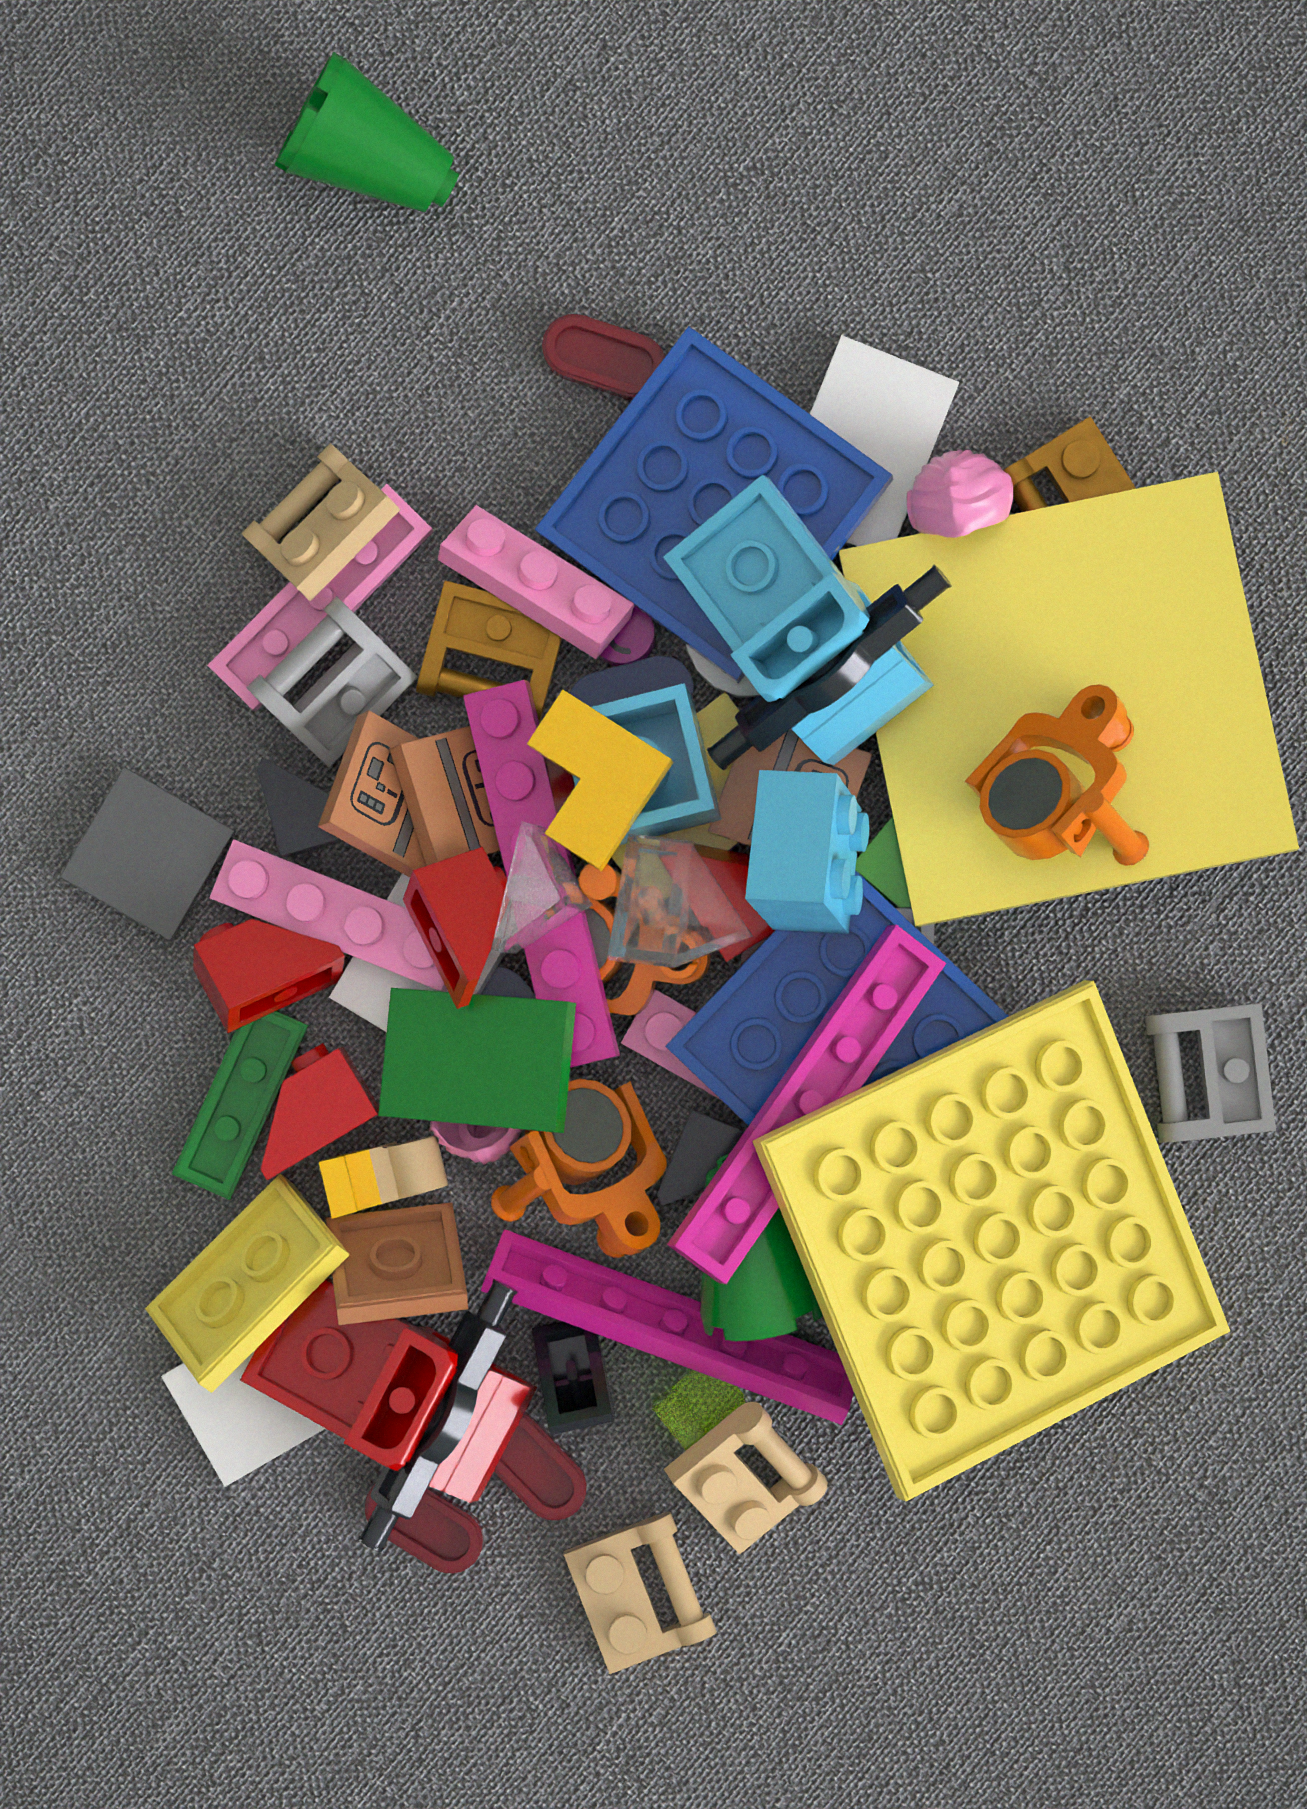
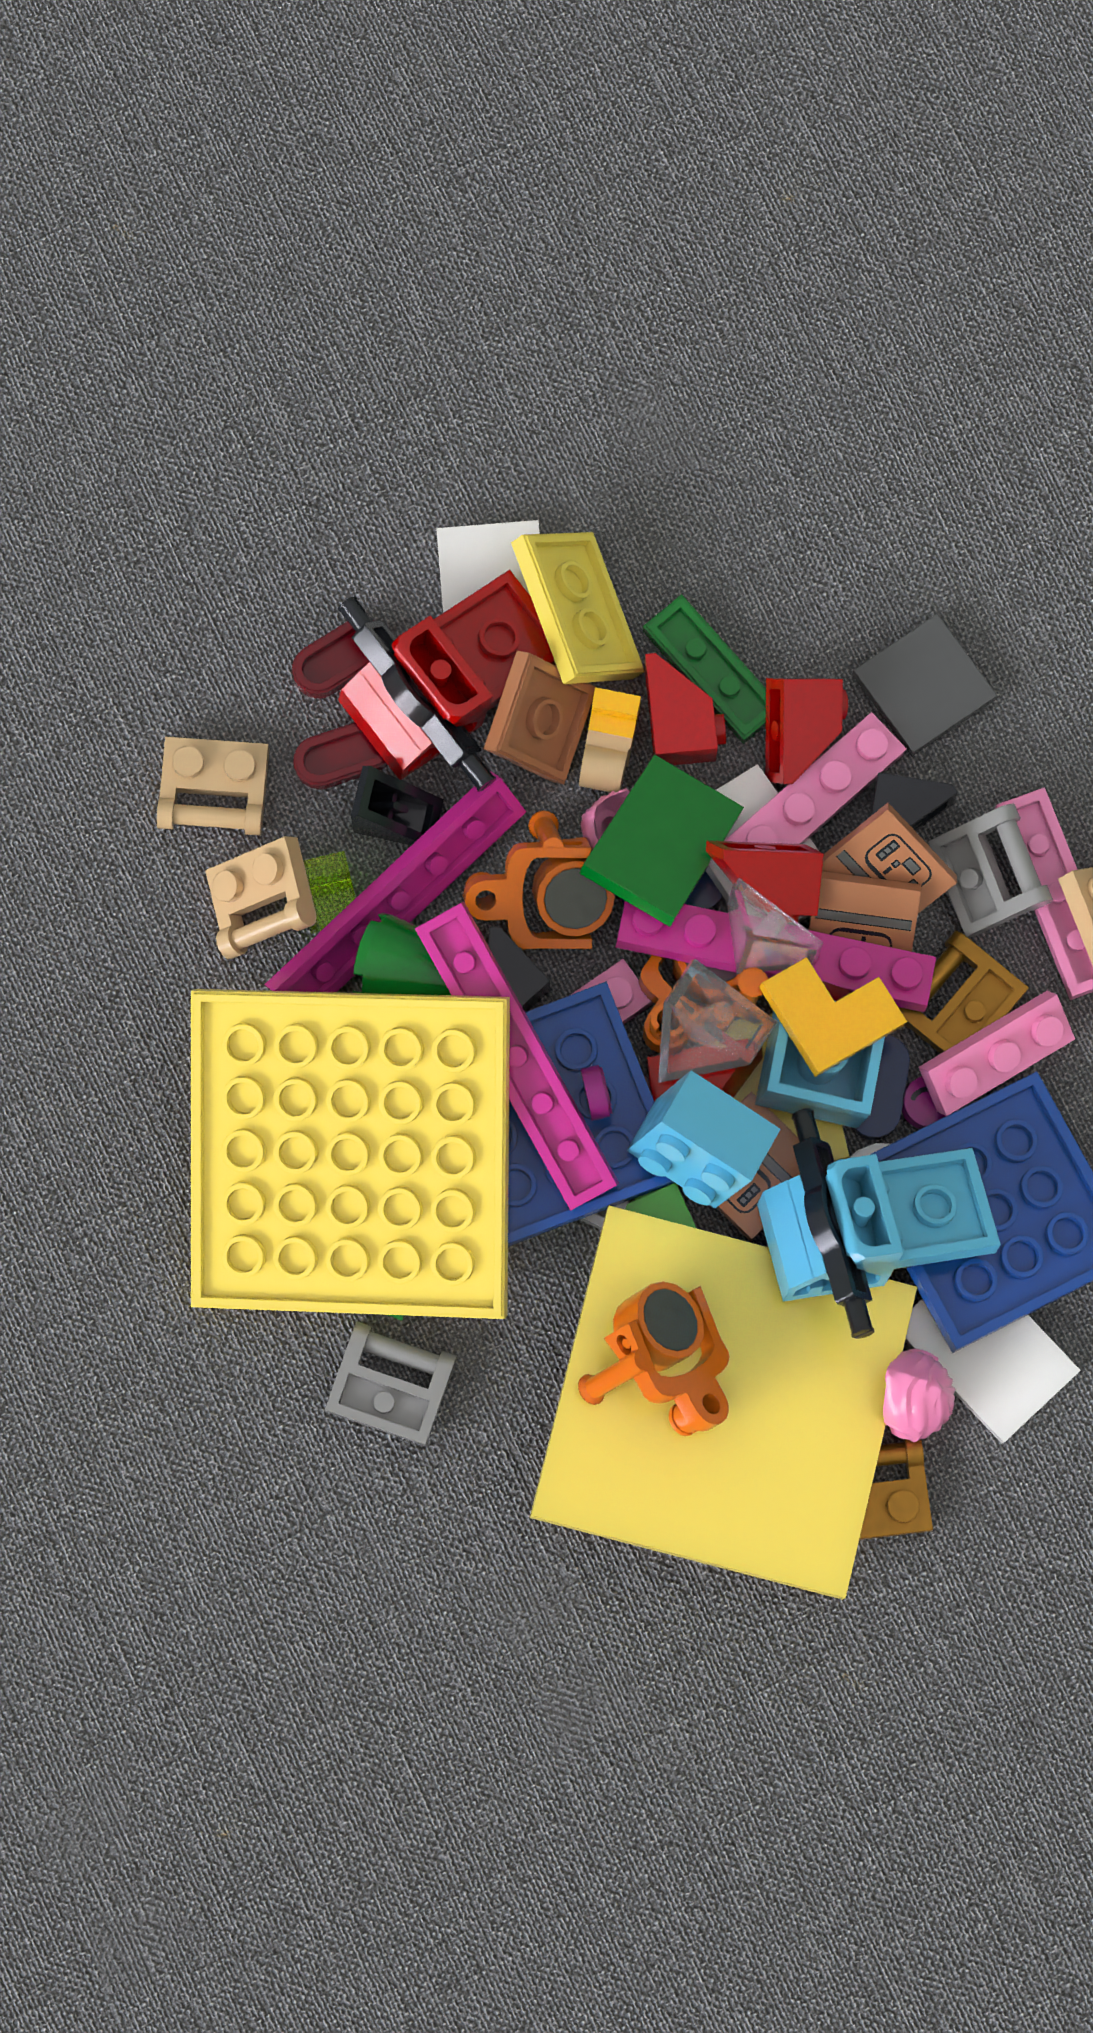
camera: 115 degrees right, 10 degrees down
(801, 997) = (596, 1092): none -> magenta tile

